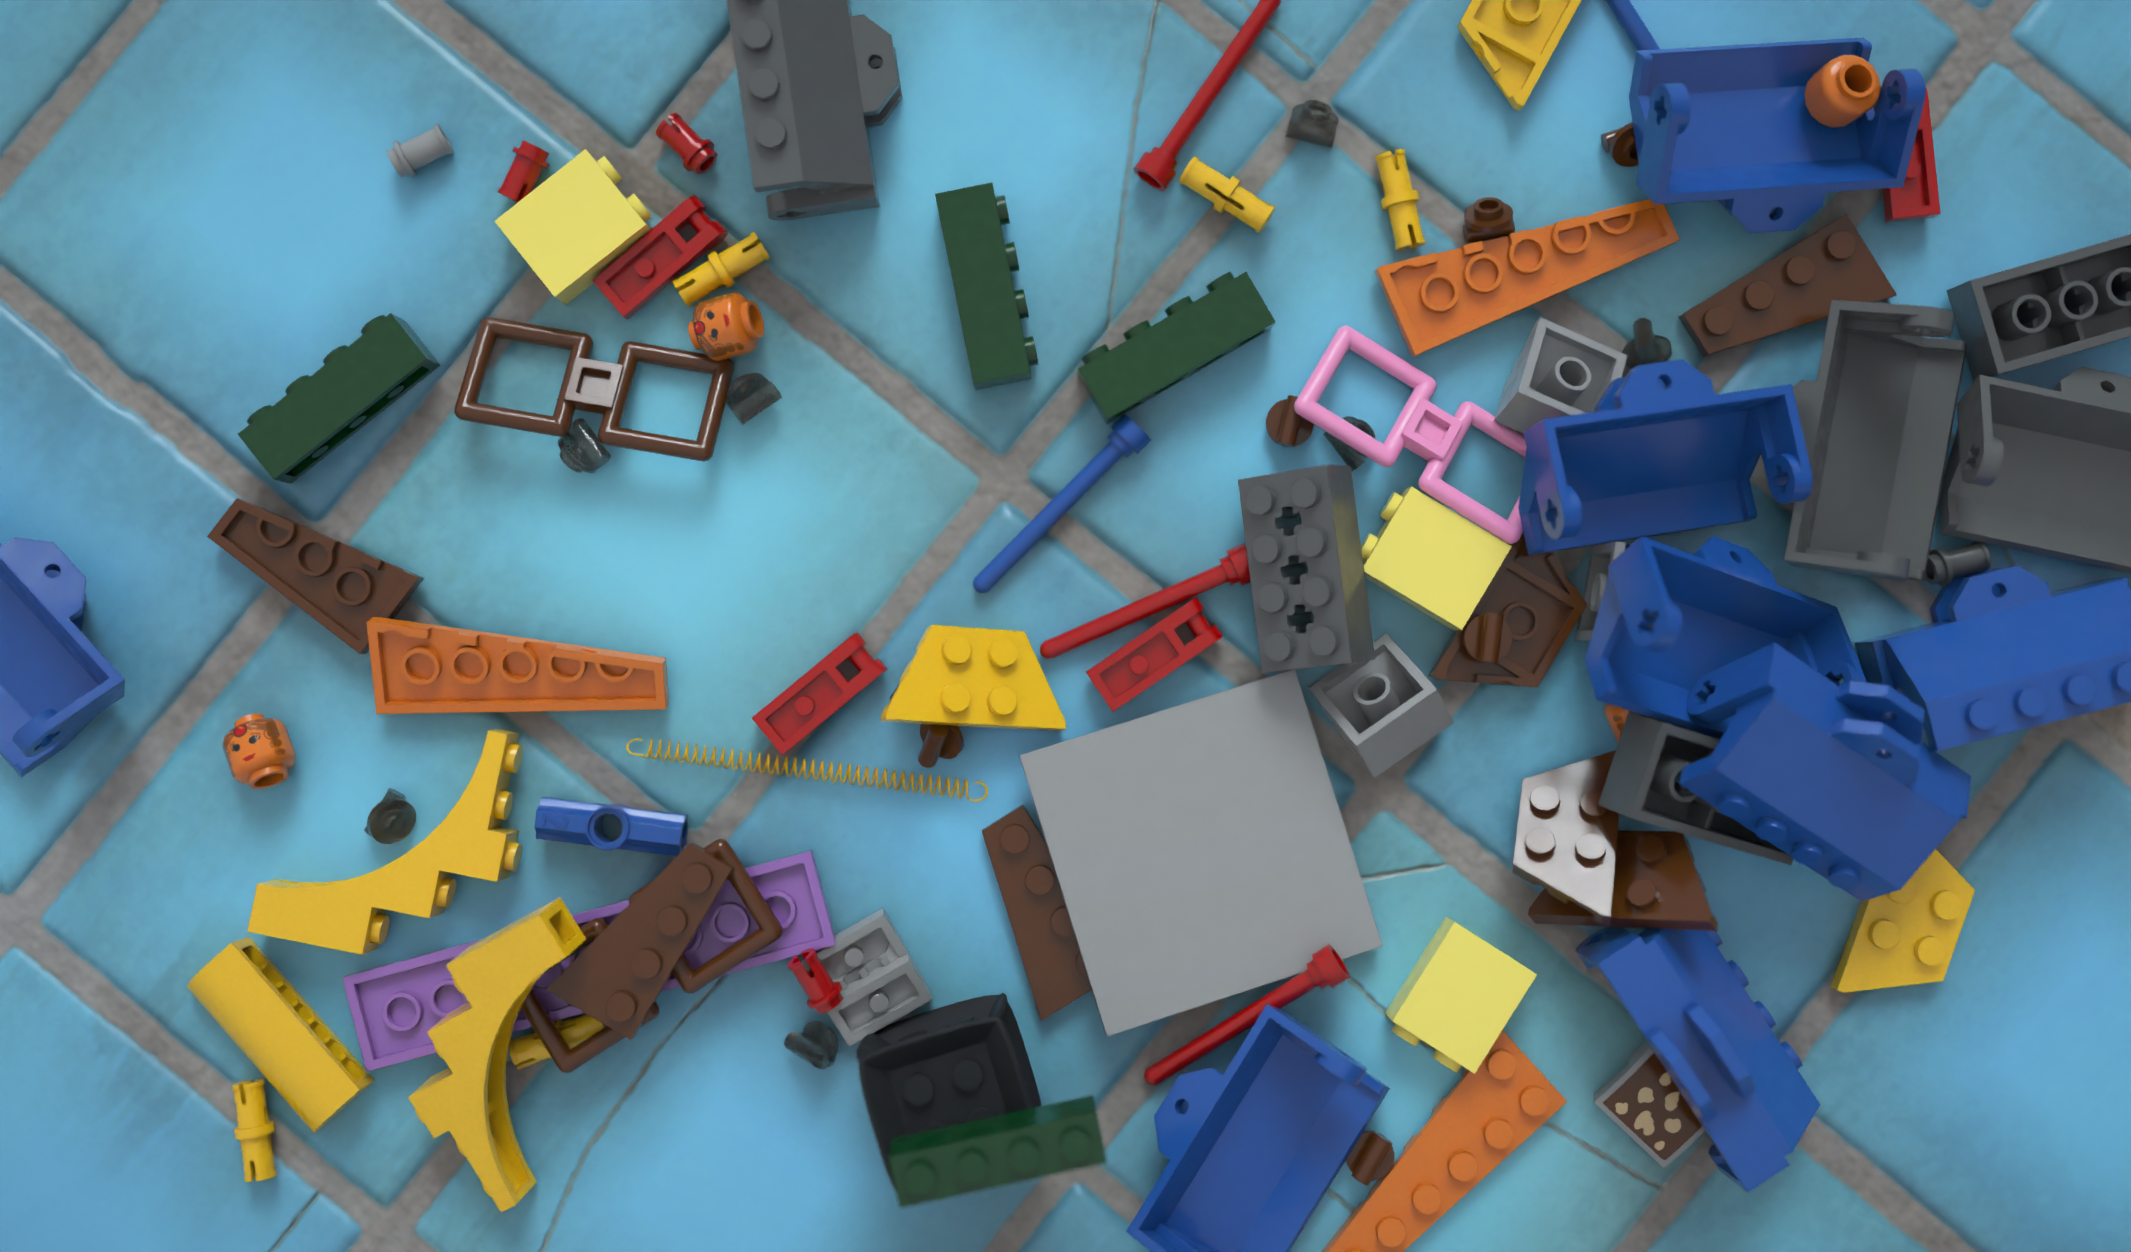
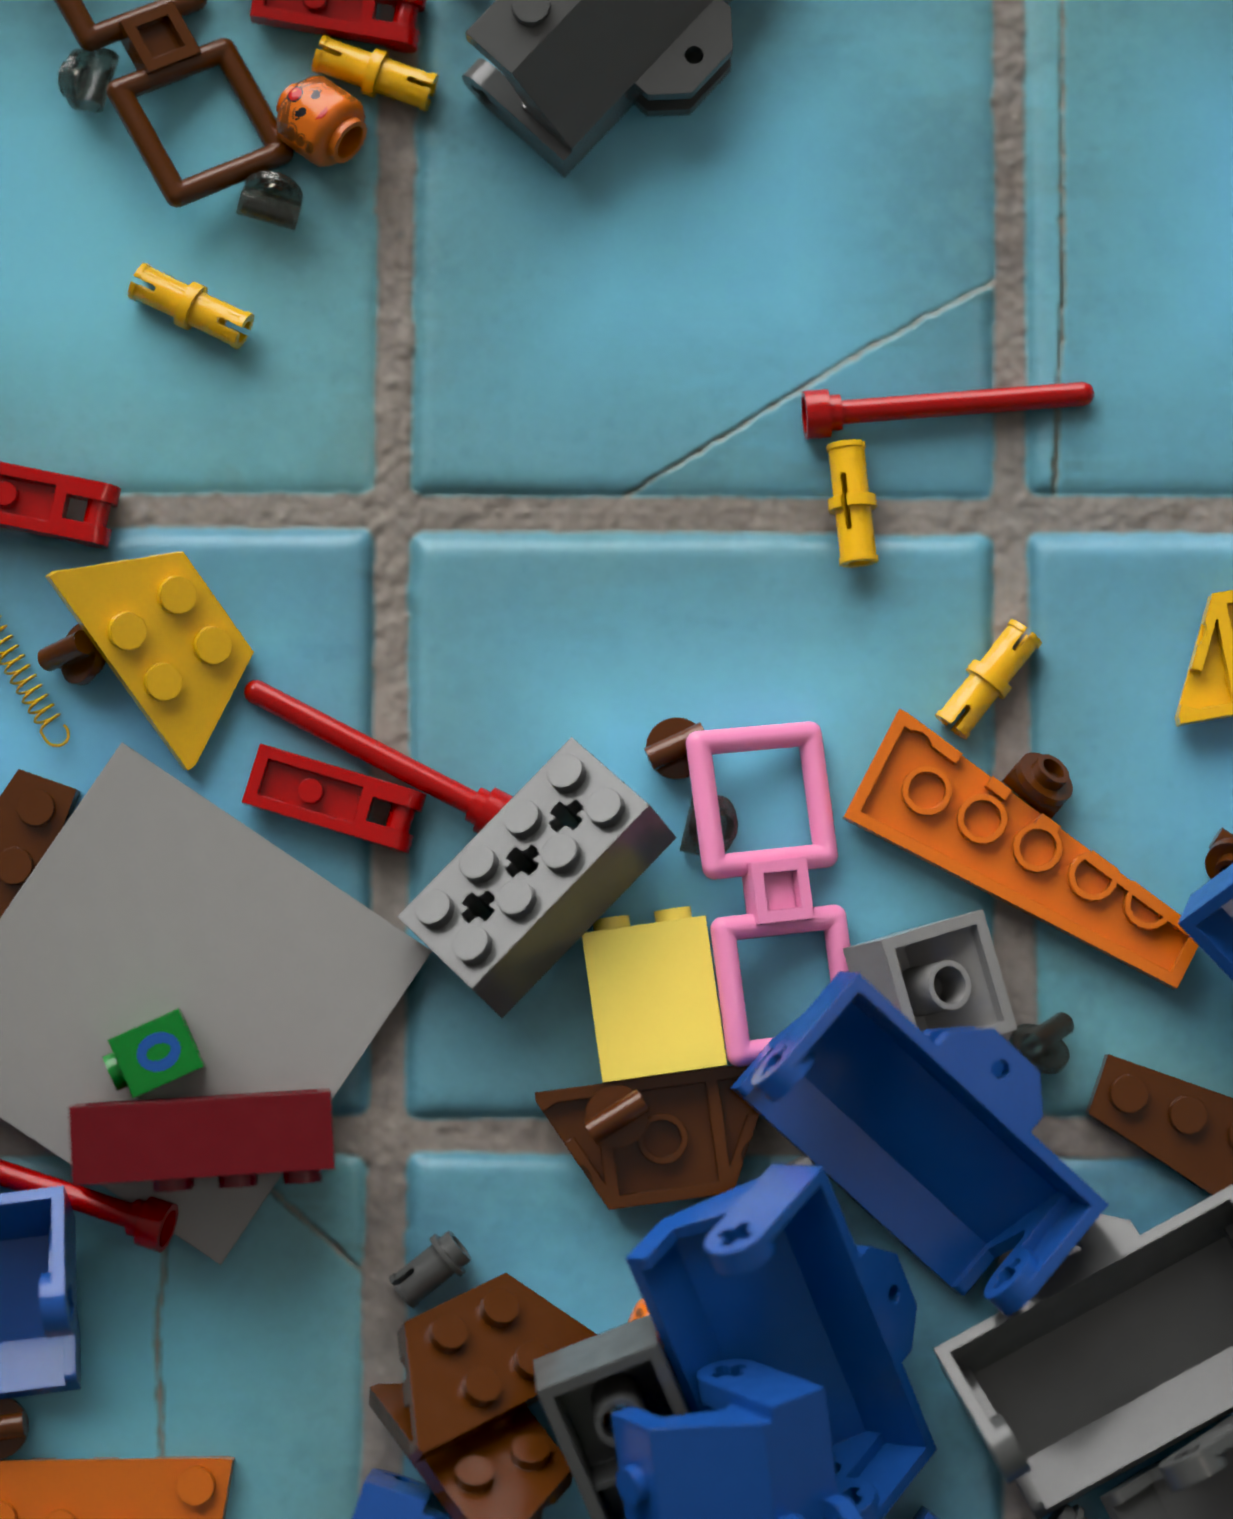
camera: 50 degrees right, 5 degrees down
(777, 499) = (190, 305): none -> yellow pin
(984, 285) = (565, 338): dark green brick -> none
(1124, 440) = (524, 597): blue piece -> none
(1176, 346) = (656, 572): dark green brick -> none
(1229, 886) = (153, 1054): none -> green brick
(1309, 895) = (203, 1138): none -> dark red brick
(1313, 123) = (993, 531): clear smoke plate -> none
(1382, 706) = (463, 1067): light grey slope -> none
(1459, 997) = (230, 1385): light yellow brick -> none
(1484, 821) = (431, 1268): none -> dark grey pin

